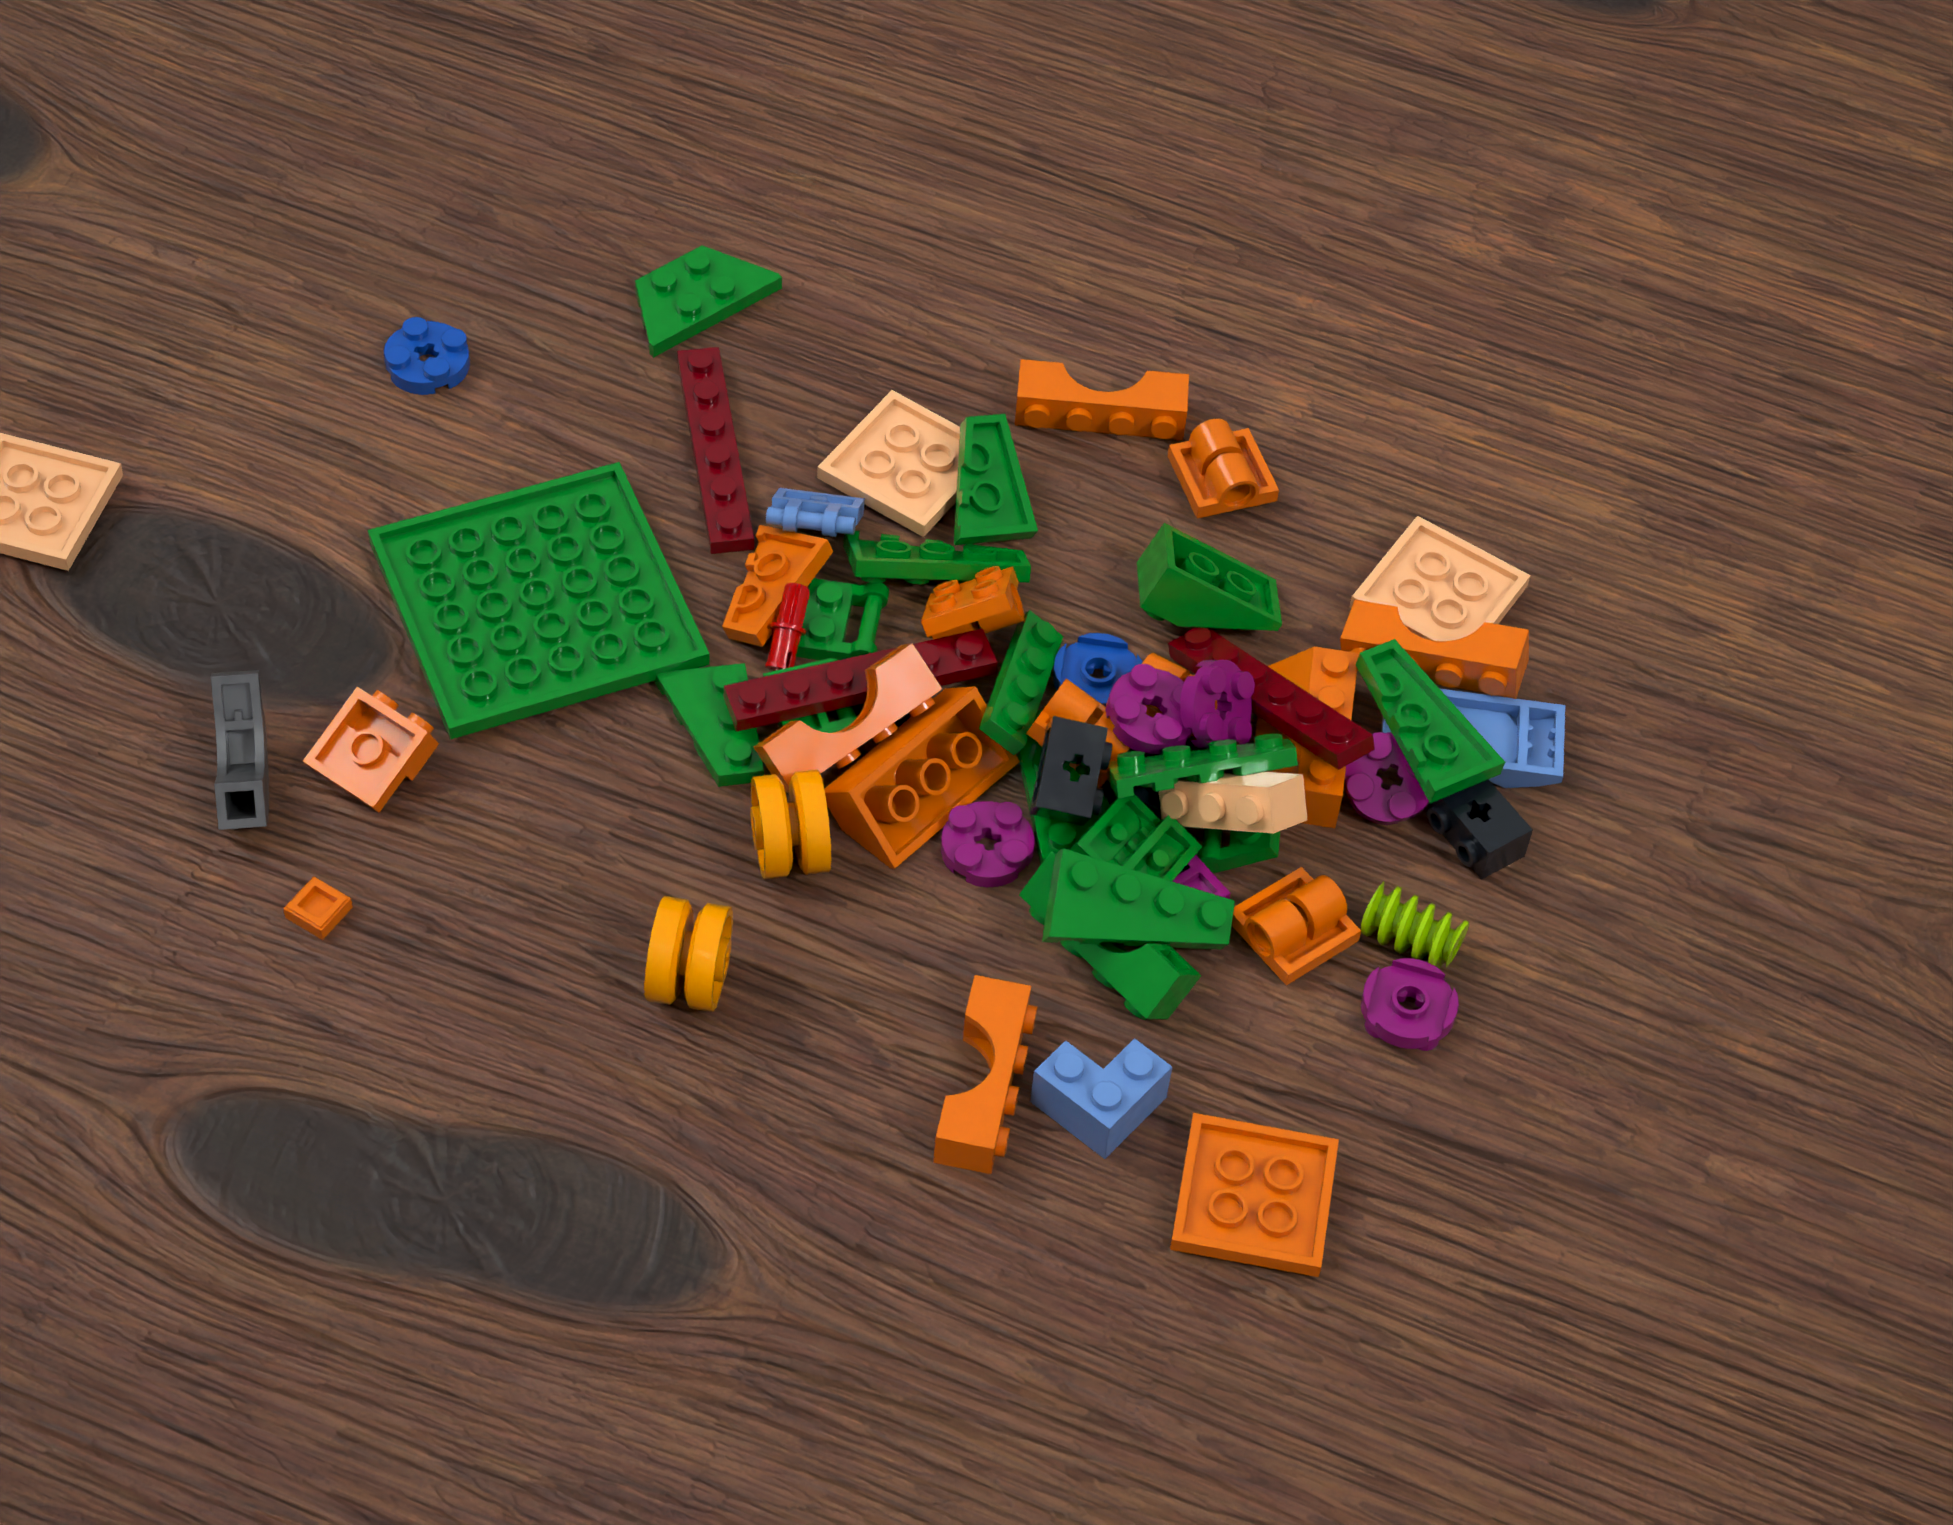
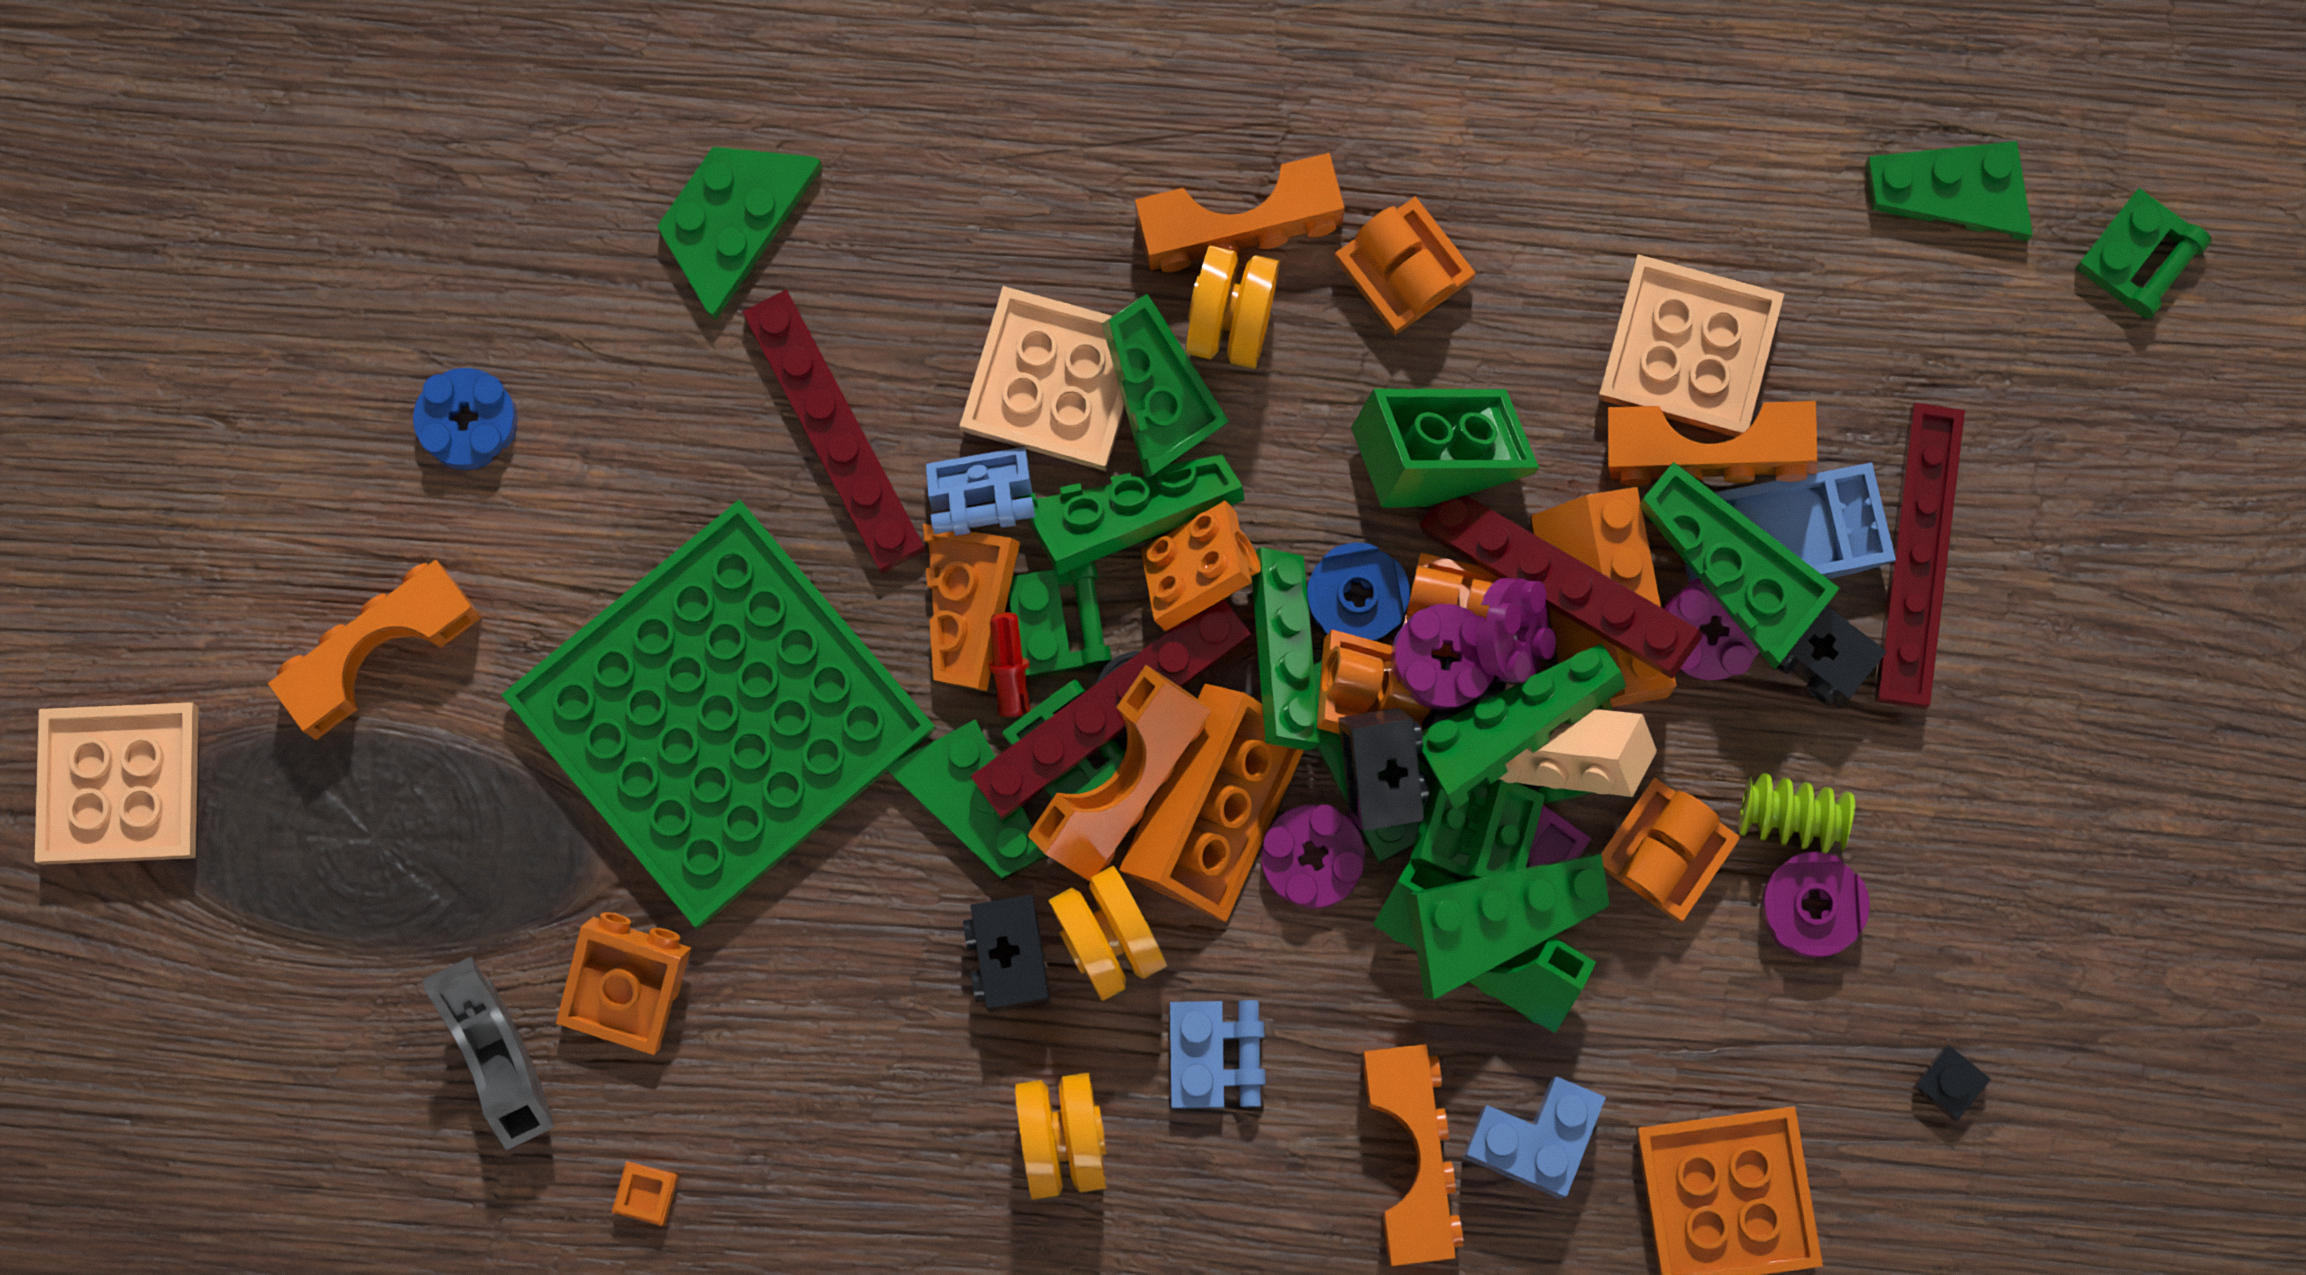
camera: 10 degrees left, 25 degrees up
(233, 479) = (321, 685): none -> orange arch
(701, 827) = (1012, 922): none -> black brick
(832, 950) = (1198, 1054): none -> medium blue plate
(1070, 445) = (1225, 305): none -> light orange wheel
(1486, 1174) = (1951, 1082): none -> black plate
(1584, 788) = (1920, 556): none -> dark red plate
(1707, 554) = (1956, 185): none -> green wing
(1839, 631) = (2131, 241): none -> green plate

